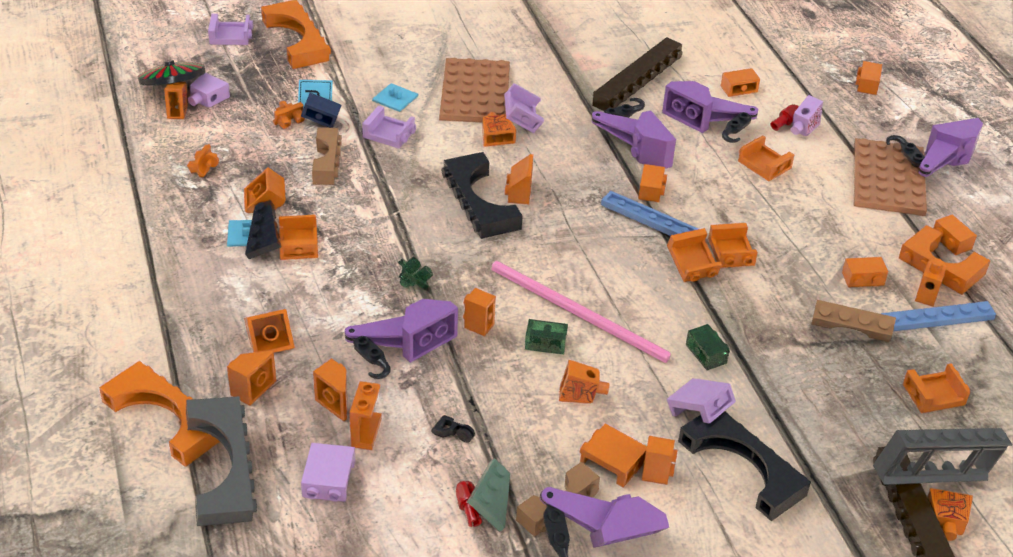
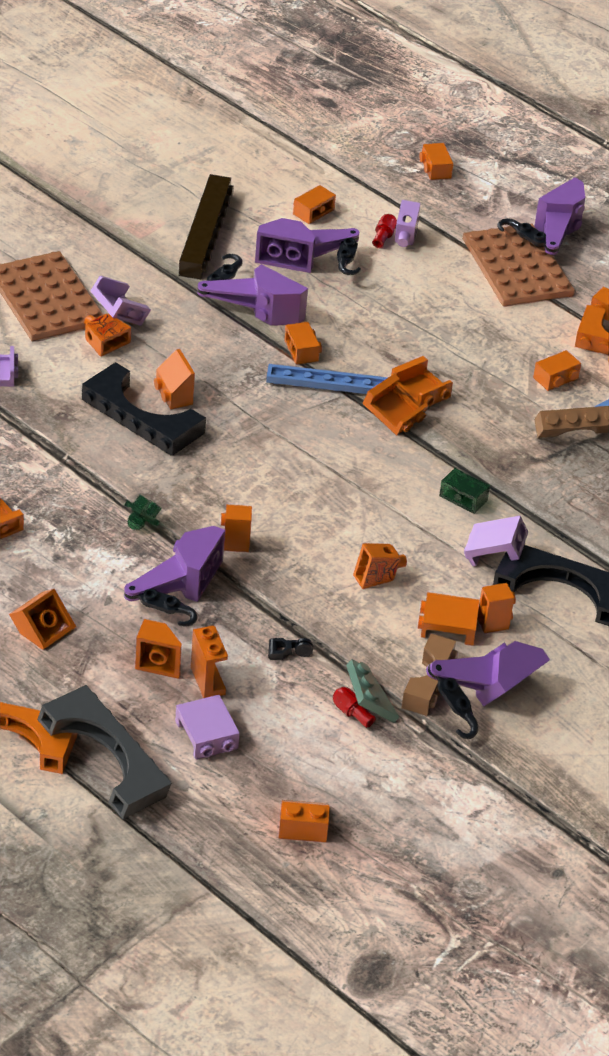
camera: 30 degrees left, 0 degrees up
(251, 375) = (65, 665): orange slope -> none
(546, 336) = (312, 531): clear green brick -> none
(582, 312) = (321, 496): bright pink axle -> none
(764, 160) = (392, 284): orange panel -> none

